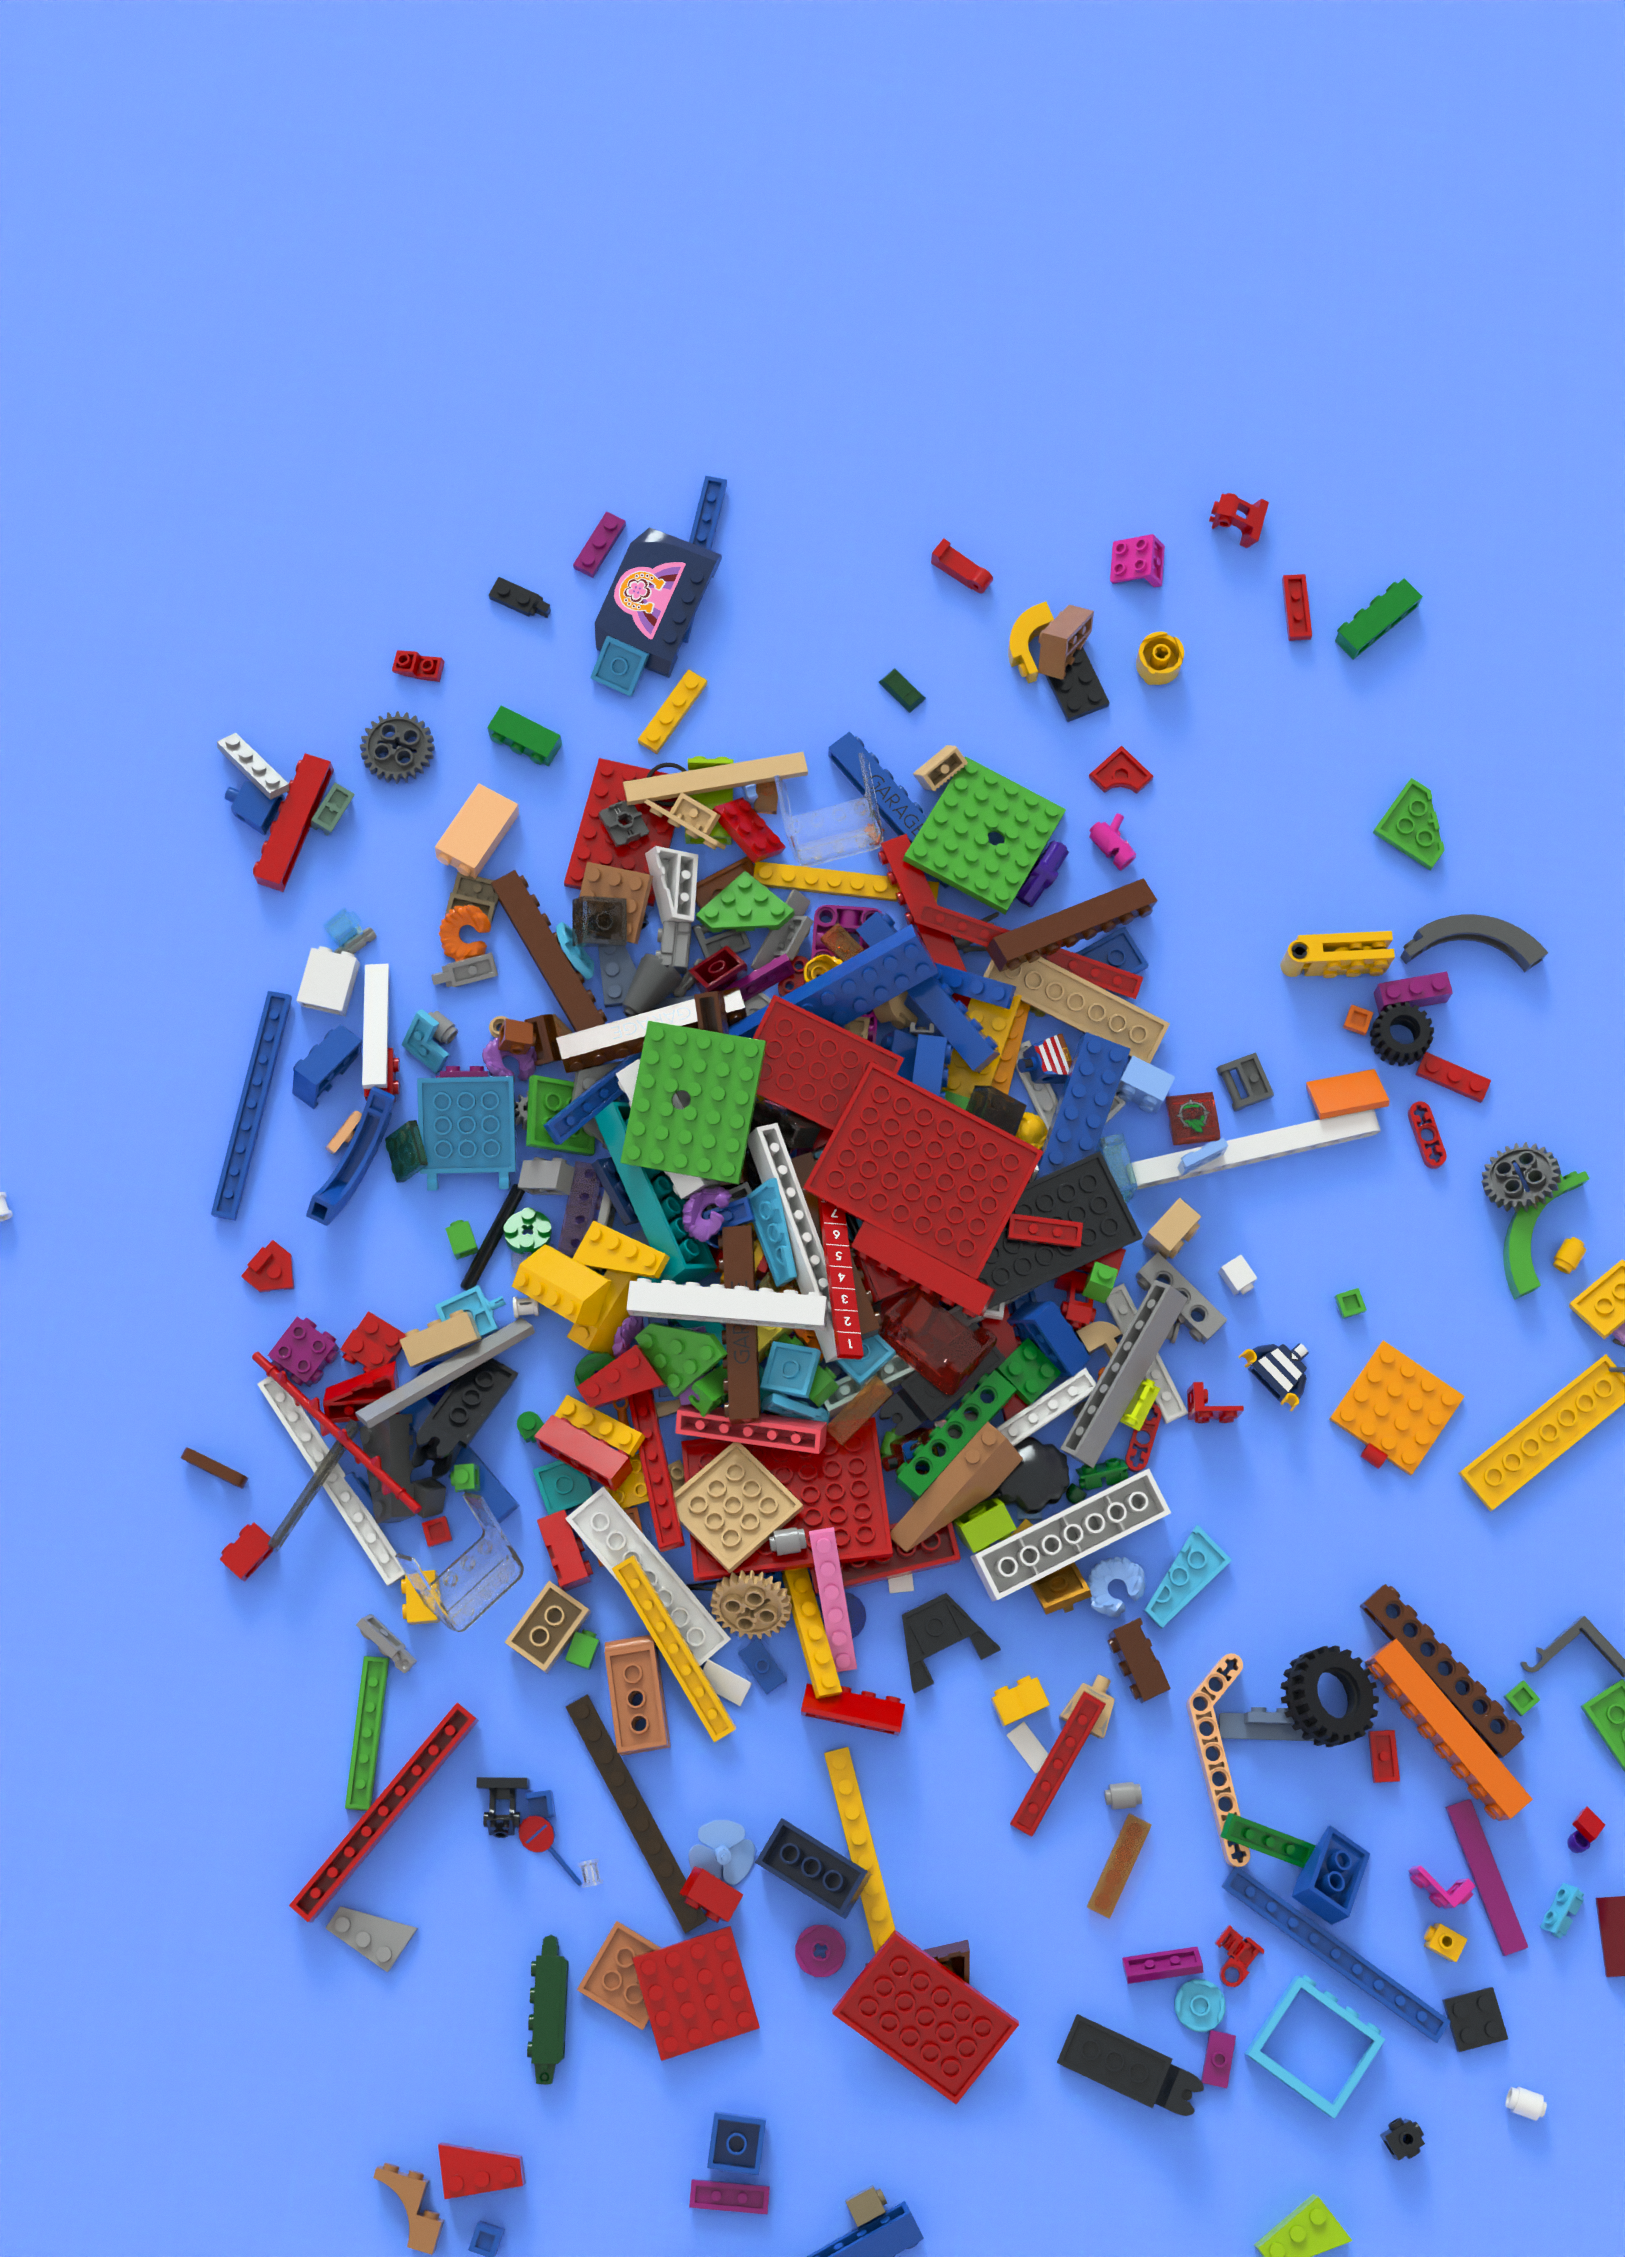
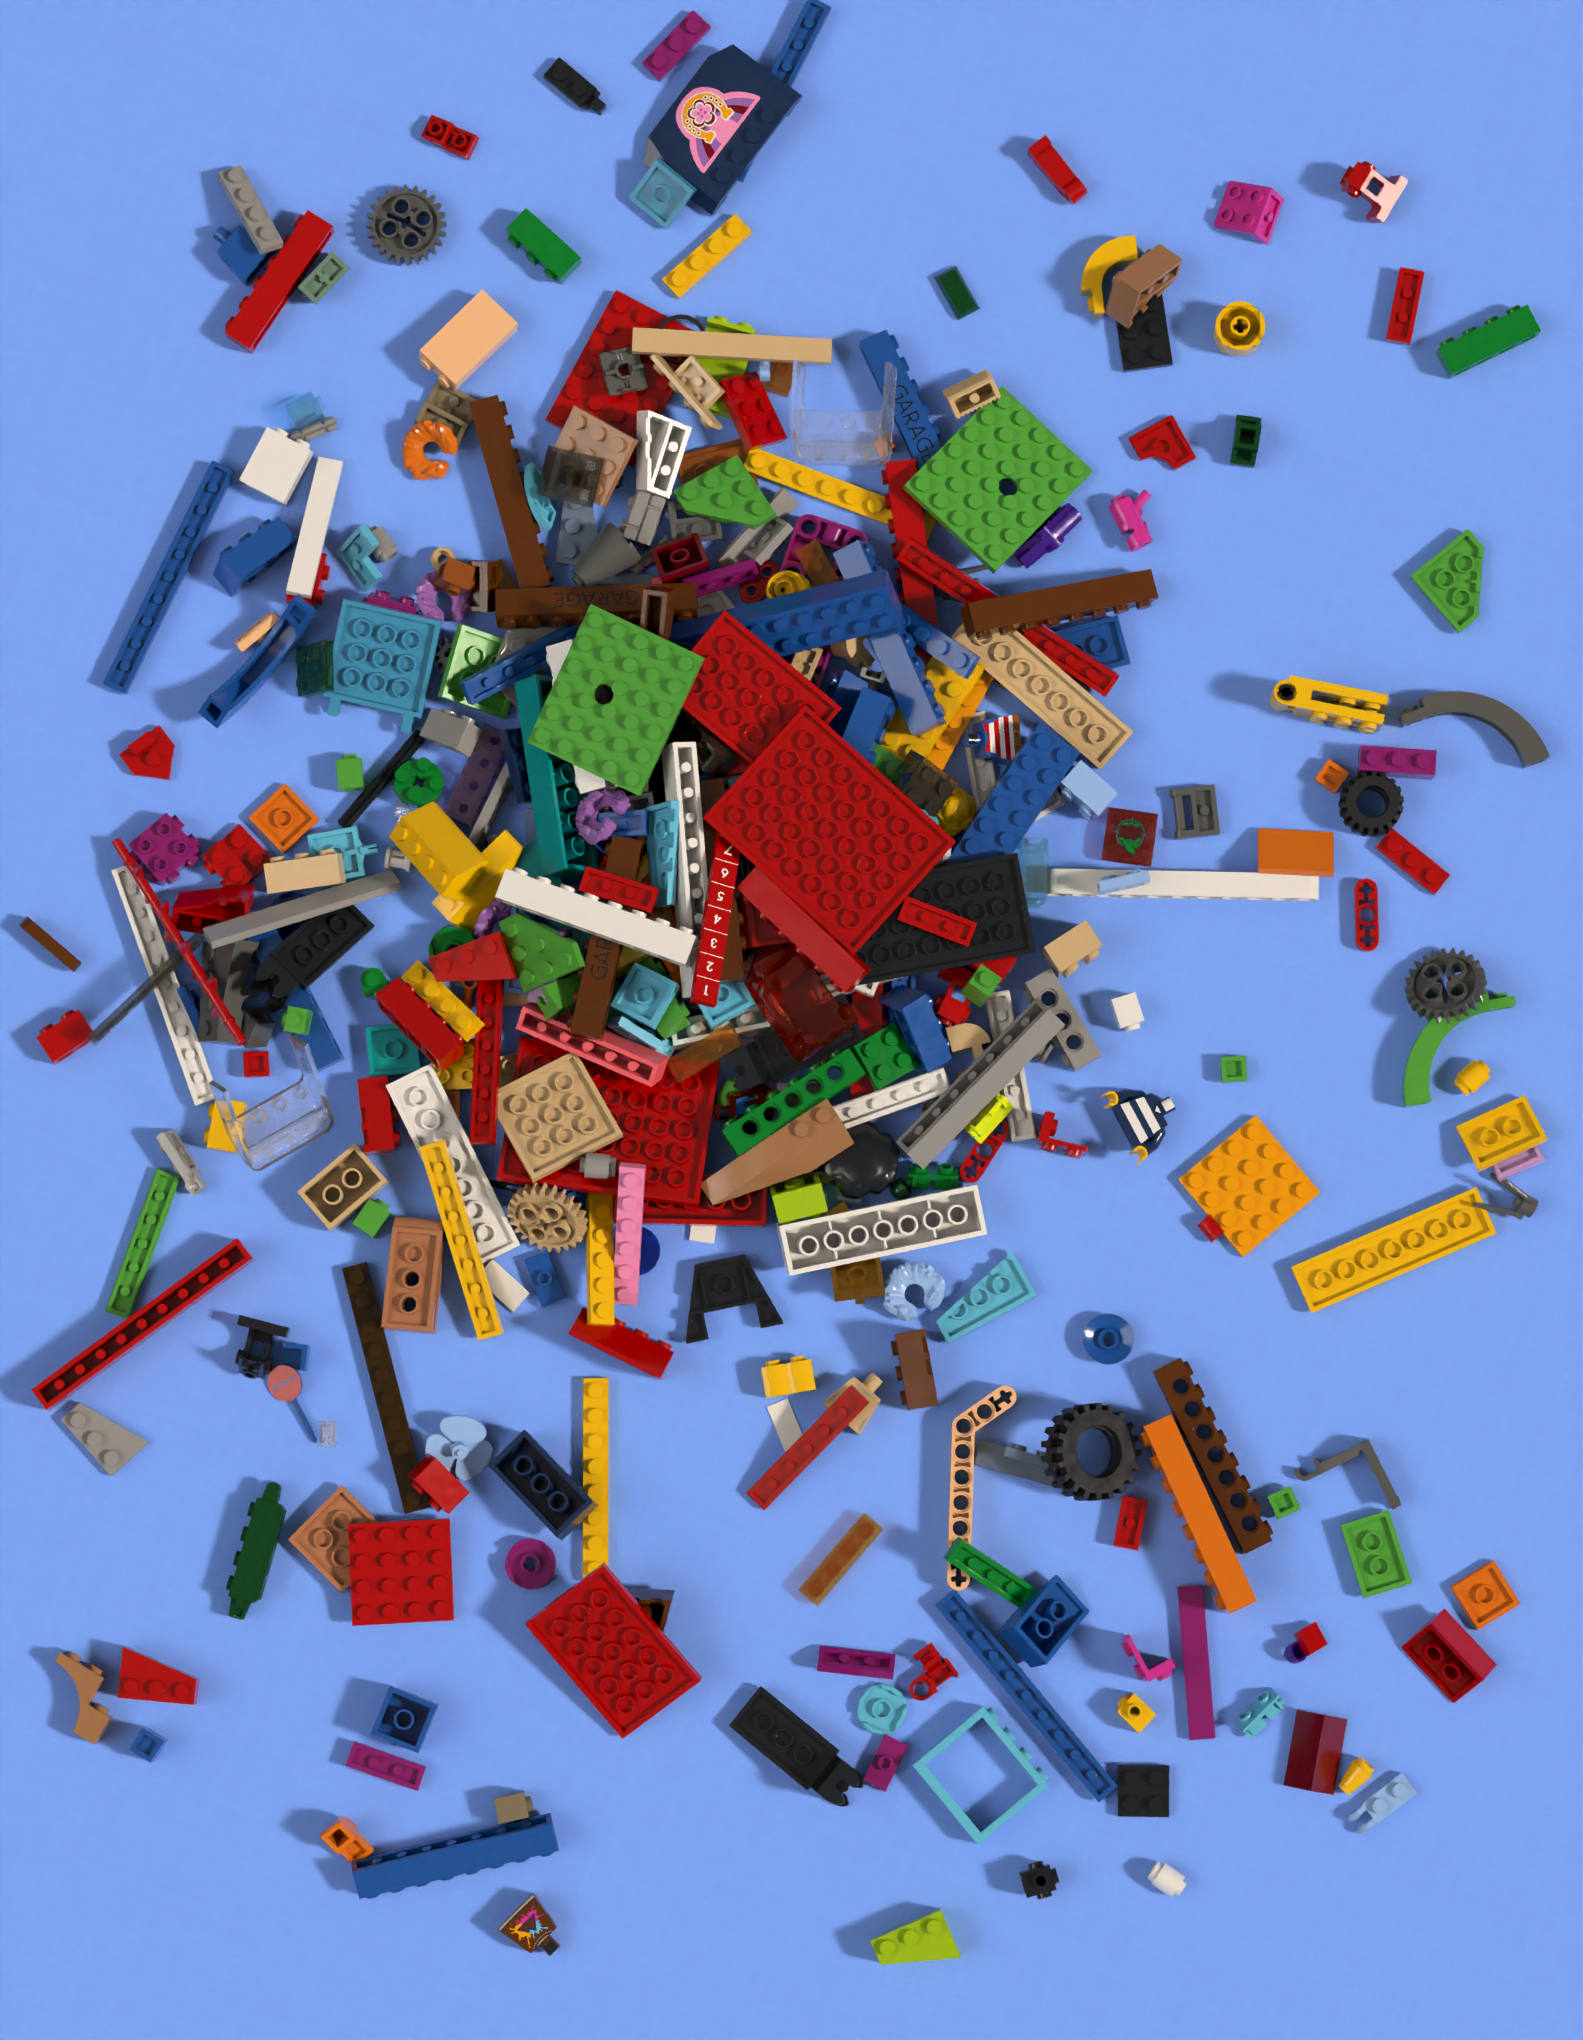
camera: 15 degrees right, 10 degrees up
(409, 1296) = (284, 818): none -> orange tile
(466, 971) = (421, 490): light grey hinge -> none
(619, 1253) = (498, 829): yellow wing -> none
(746, 1274) = (619, 890): none -> red plate
(1123, 1795) = (863, 1494): light grey brick -> none
(1194, 751) = (1245, 441): none -> dark green brick
(1319, 1575) = (1108, 1325): none -> blue dish

